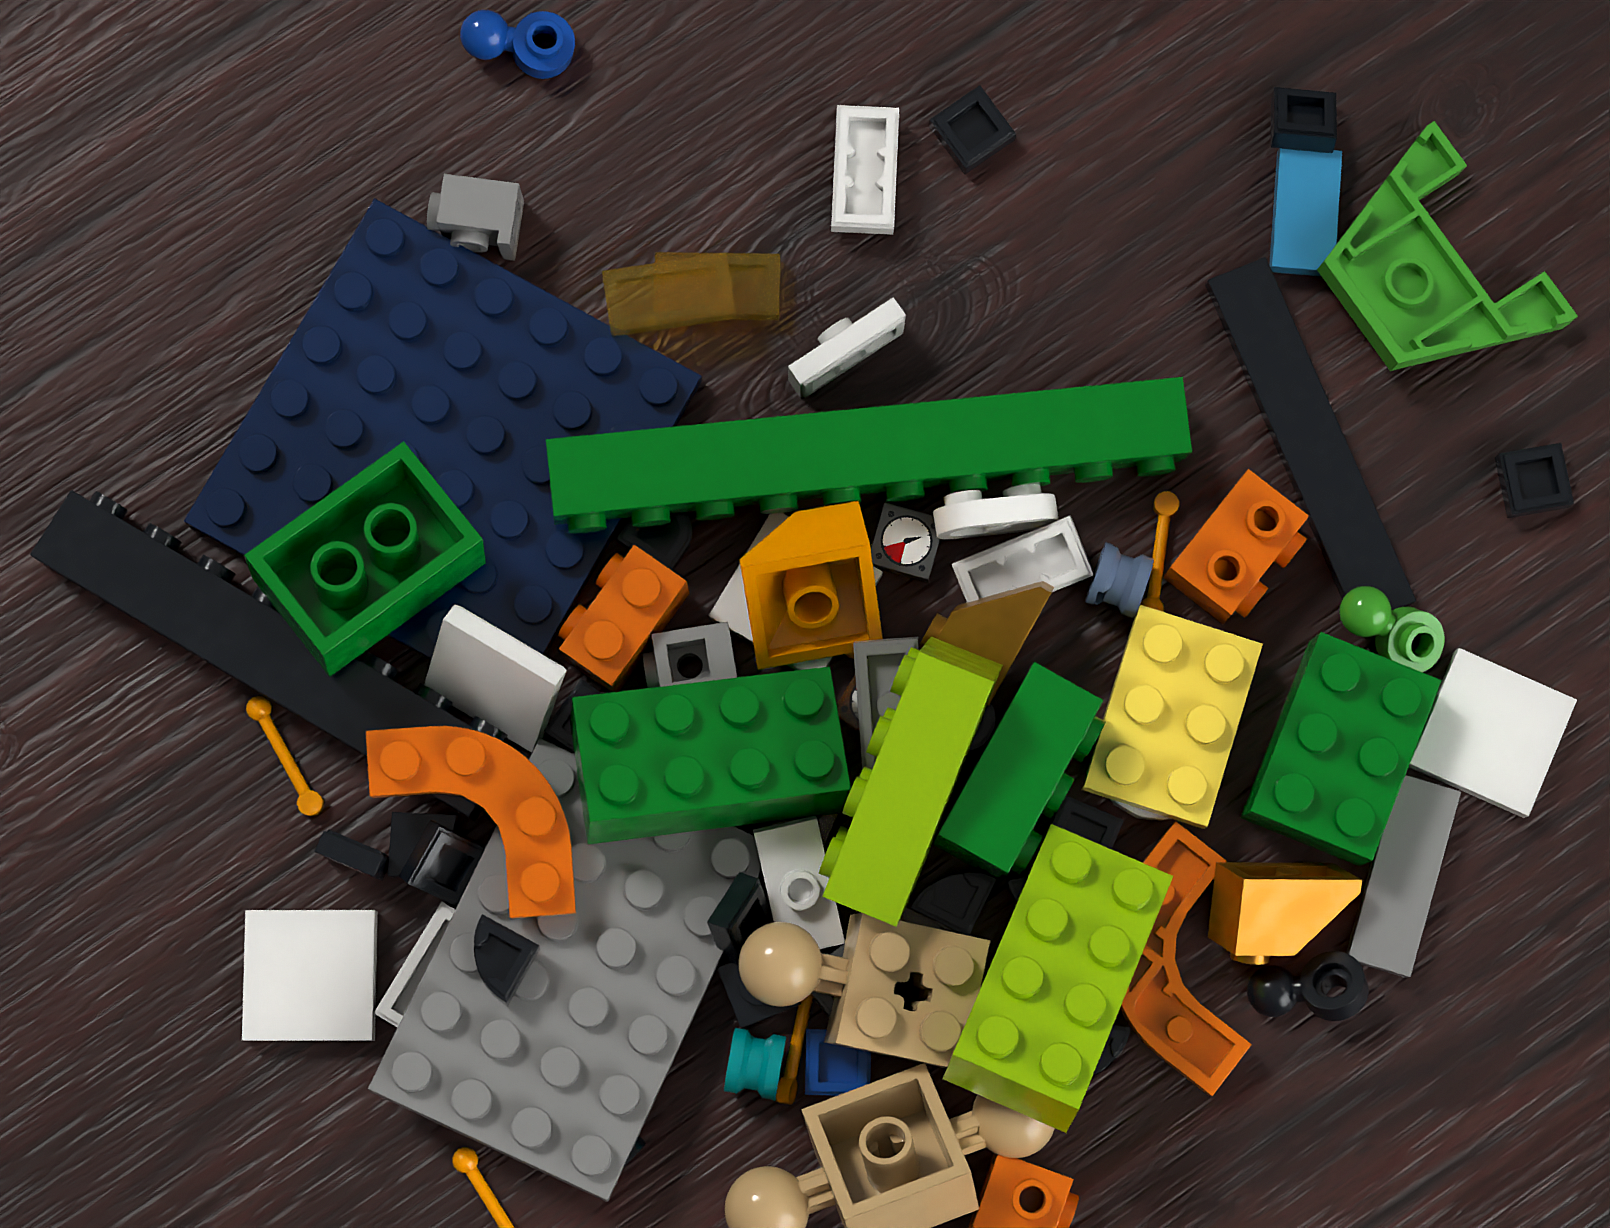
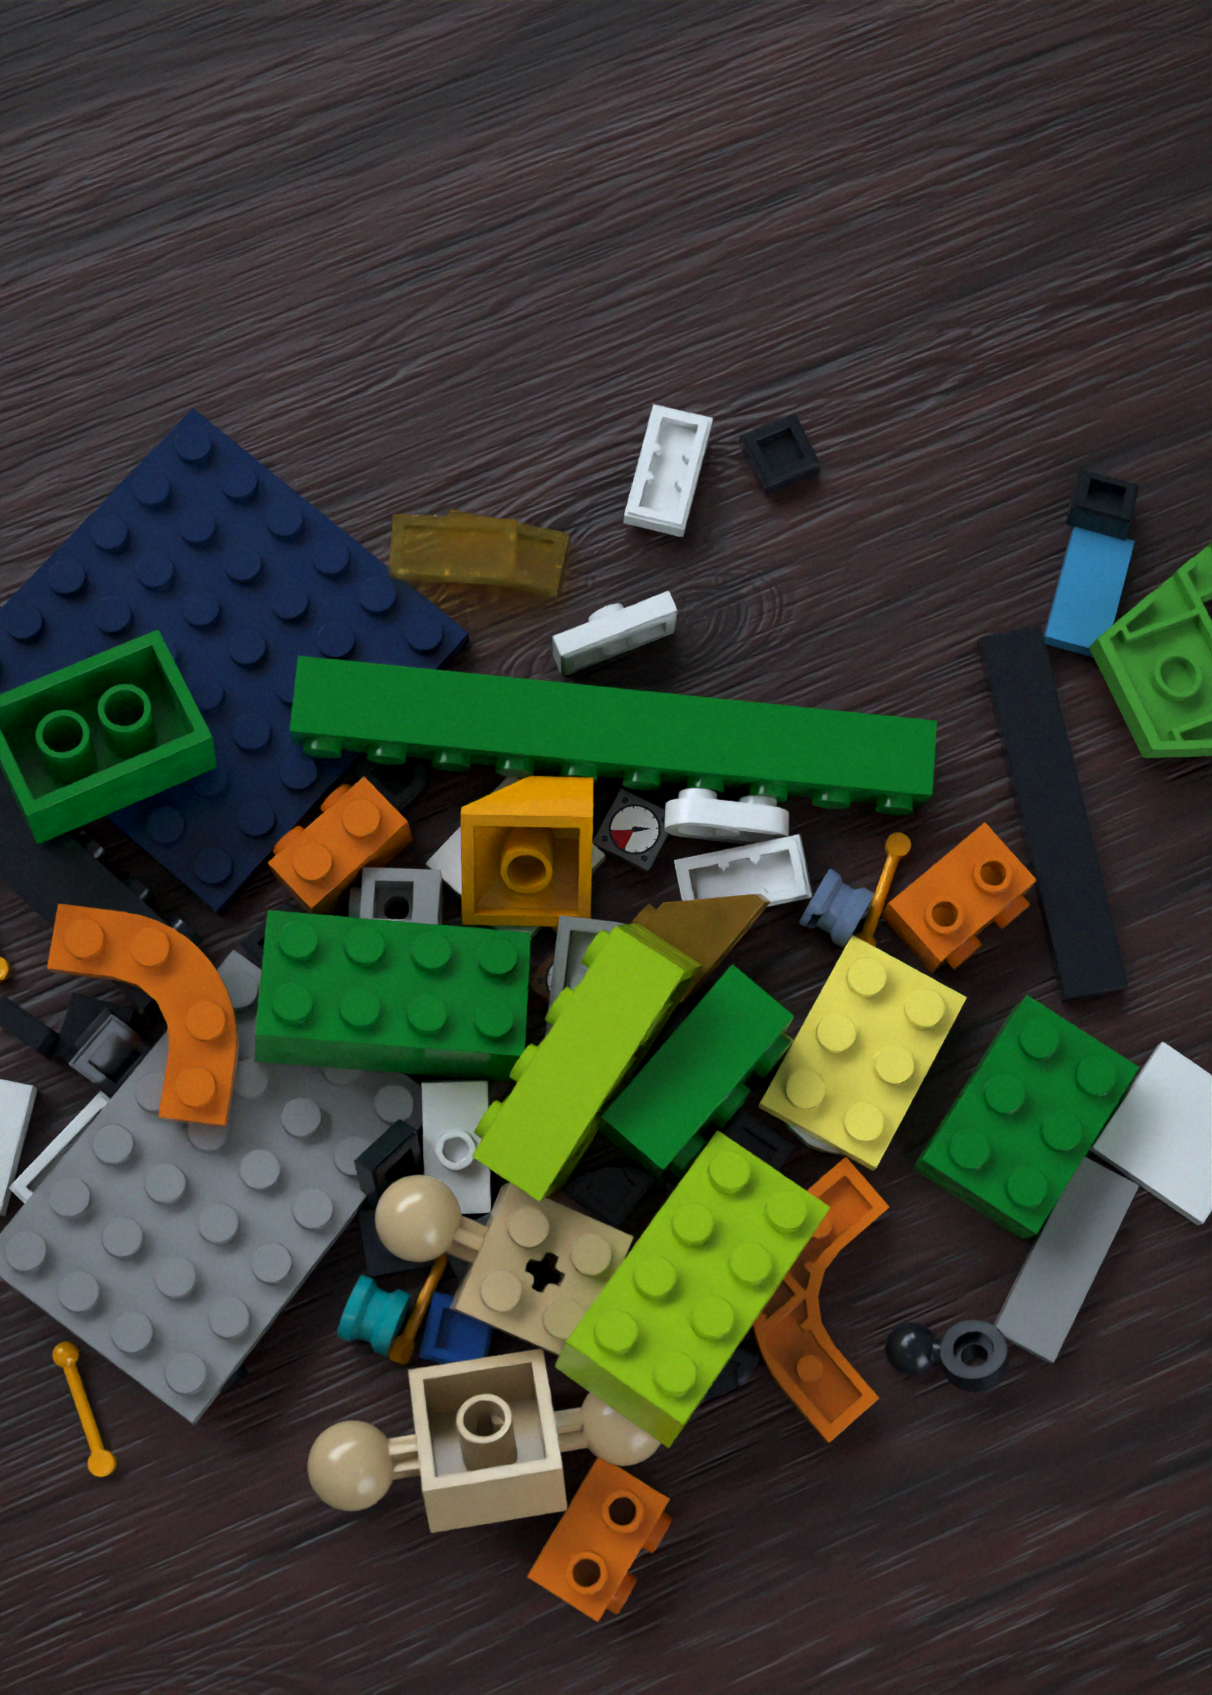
camera: 10 degrees right, 5 degrees down
(477, 213) = (288, 439): light grey brick -> none
(488, 36) = (335, 279): blue plate -> none
(494, 677) = (199, 878): white tile -> none
(502, 957) = (142, 1155): black tile -> none
(1275, 906) = (929, 1262): slope -> none
(1368, 613) = (1078, 987): bright green plate -> none

